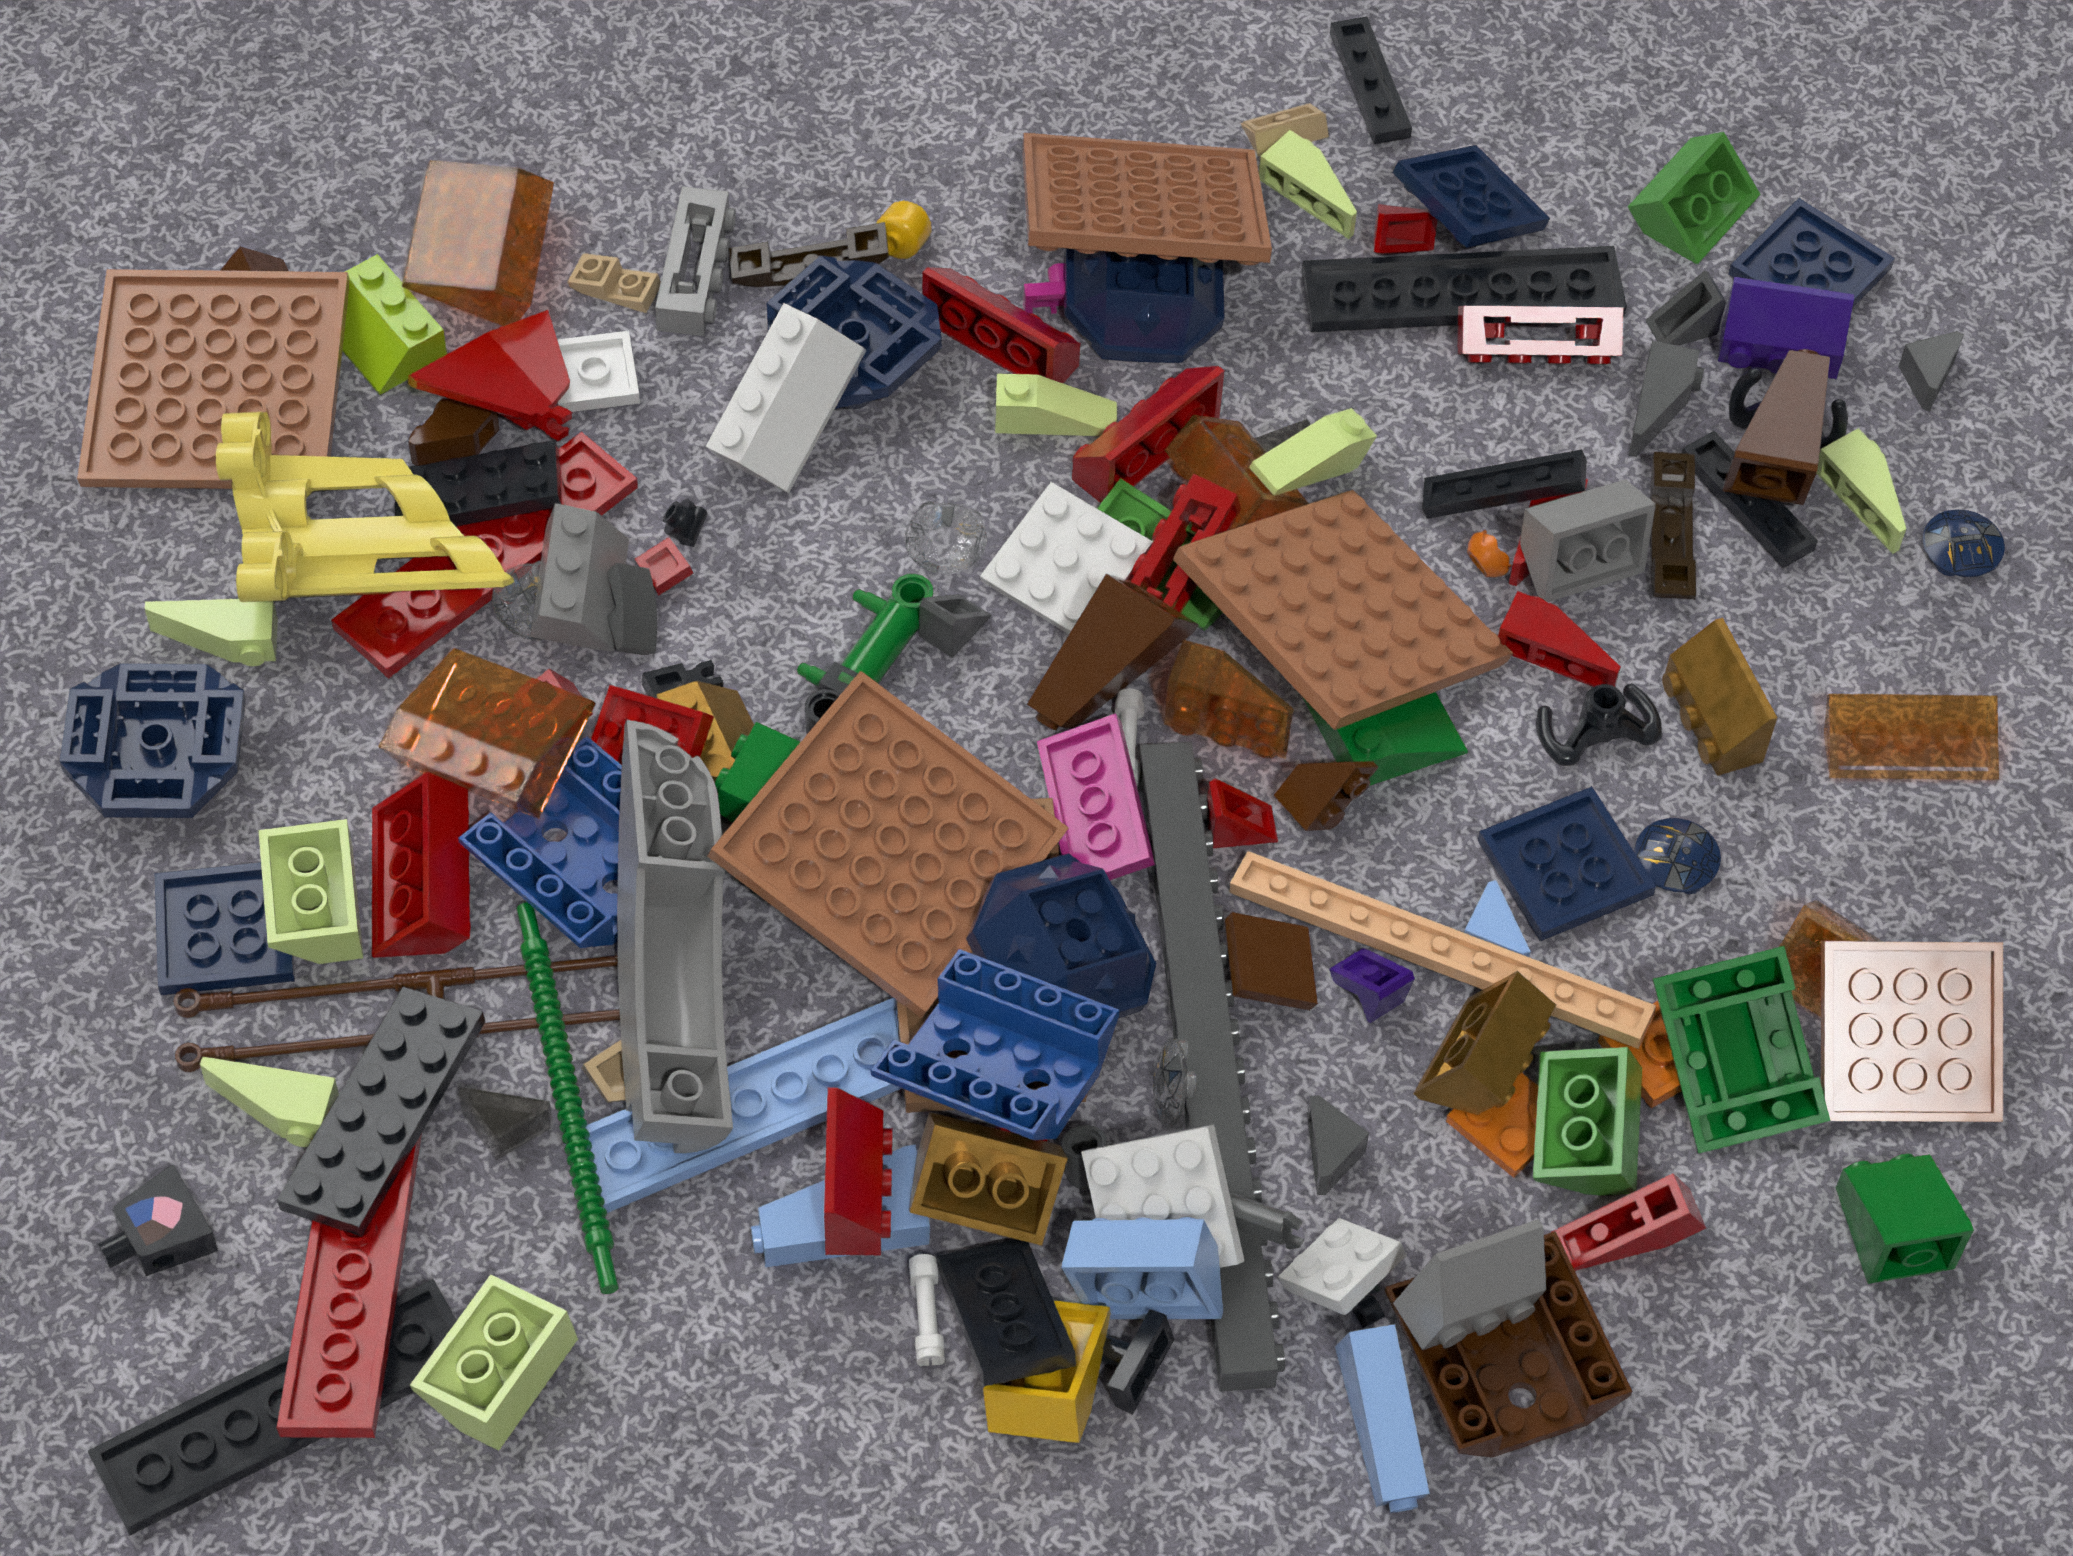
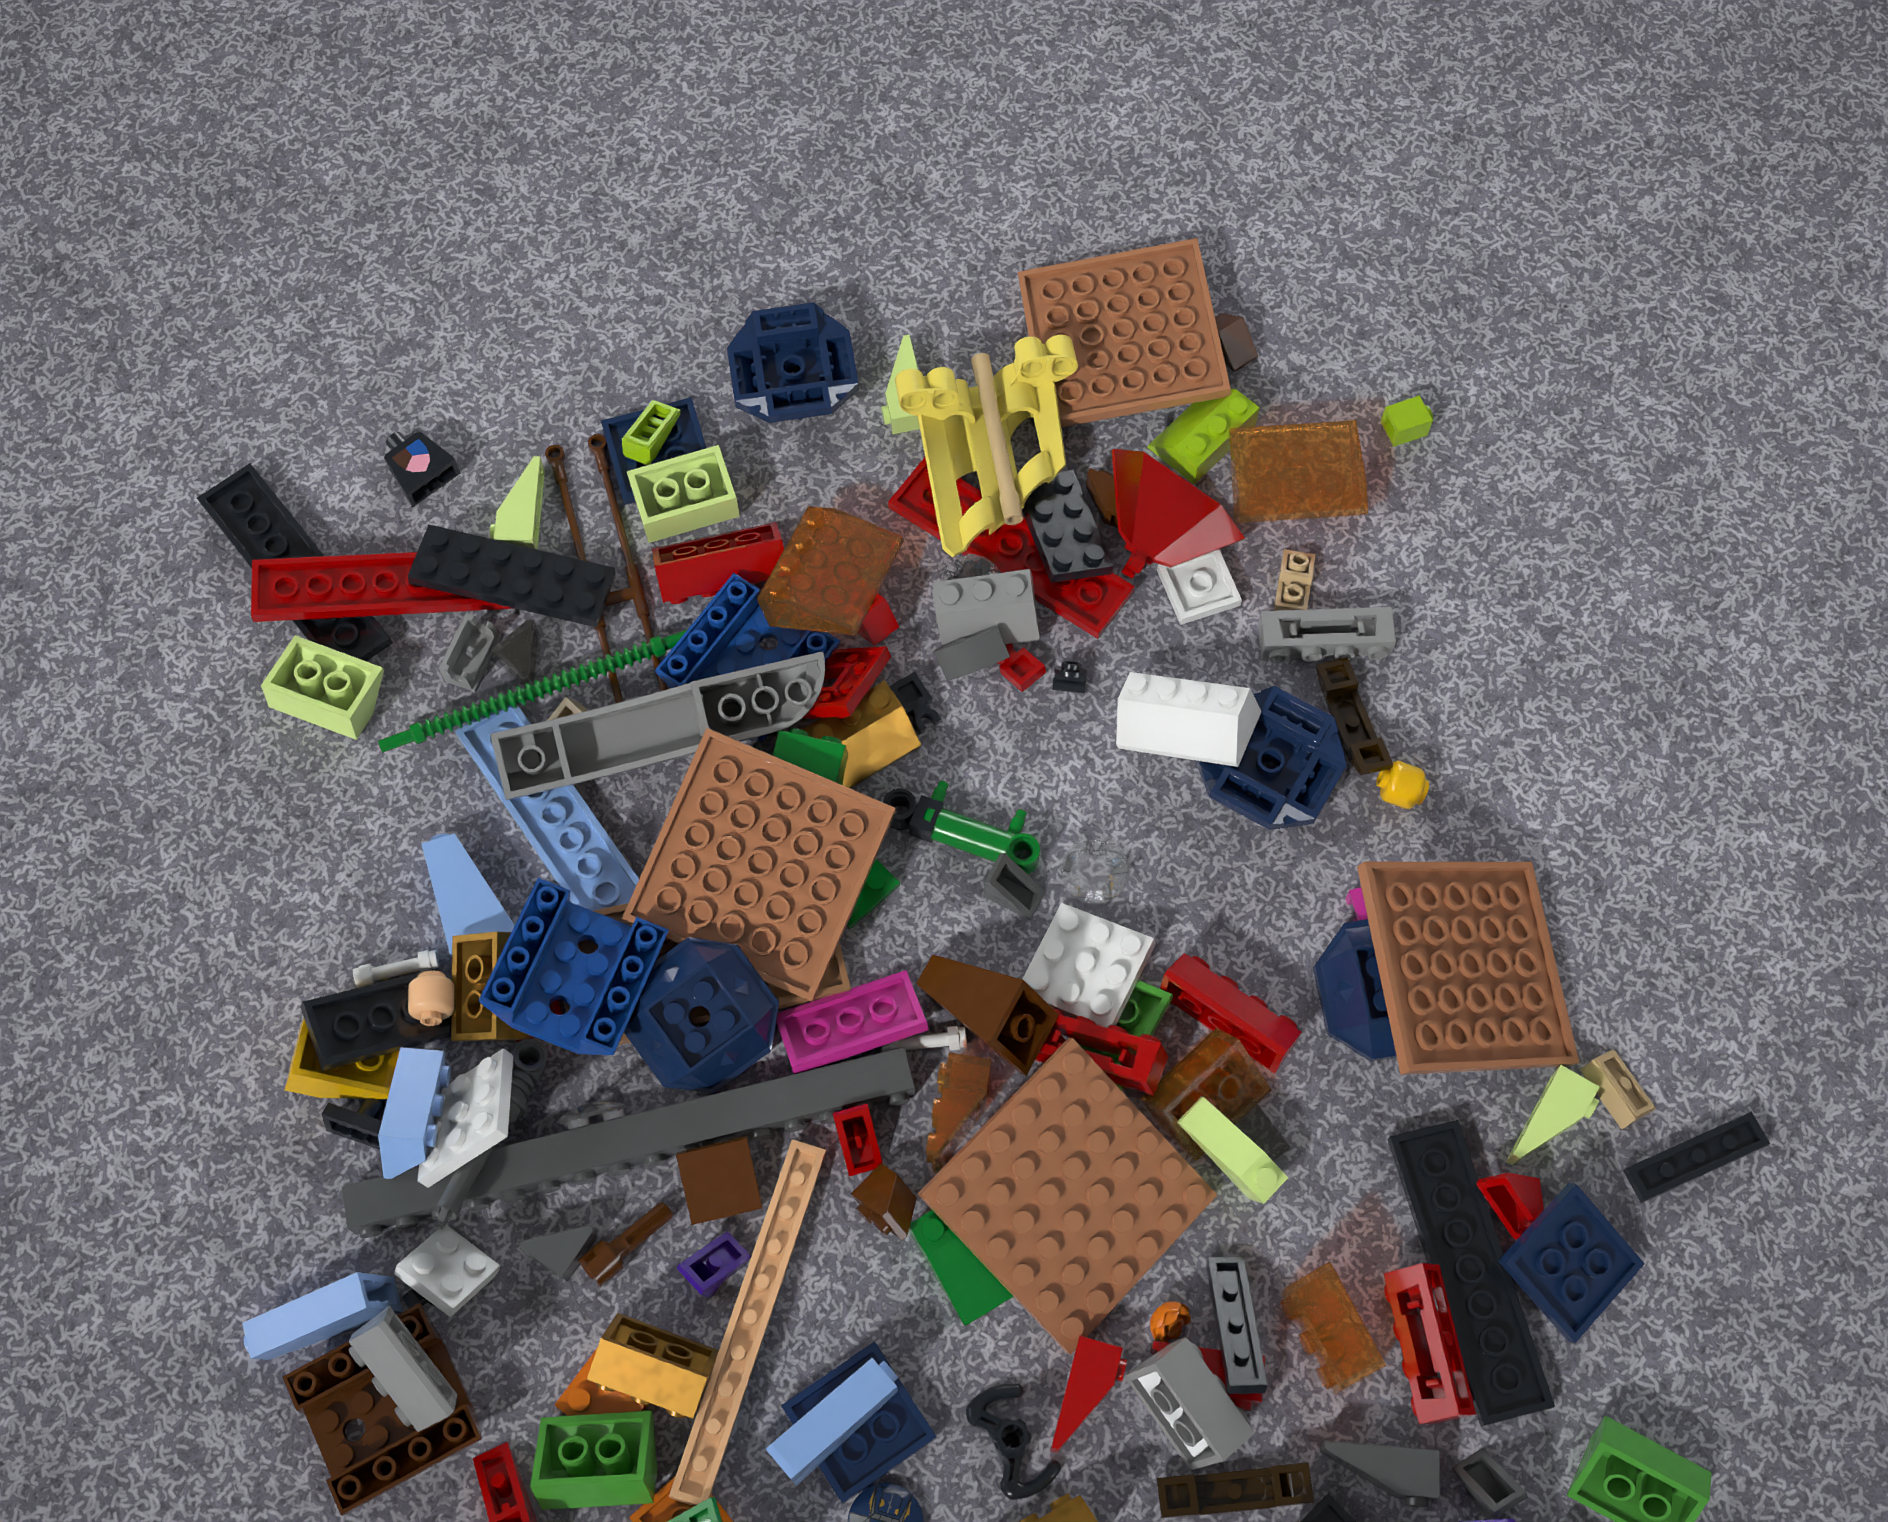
camera: 85 degrees right, 10 degrees up
(219, 939) = (645, 449): none -> lime slope
(428, 130) = (1407, 420): none -> lime brick
(433, 520) = (1008, 495): none -> tan piece
(481, 1185) = (469, 653): none -> light grey hinge
(856, 1176) = (465, 886): red slope -> none
(988, 1247) = (431, 998): none -> light nougat head
(999, 328) = (1314, 876): red slope -> none
(1049, 407) = (1243, 932): yellowish green slope -> none
(1343, 1090) = (606, 1258): none -> reddish brown piece
(1495, 922) = (777, 1363): light blue slope -> none
(1516, 404) = (1331, 1329): none -> clear orange slope
(1577, 868) = (833, 1420): none -> light blue slope

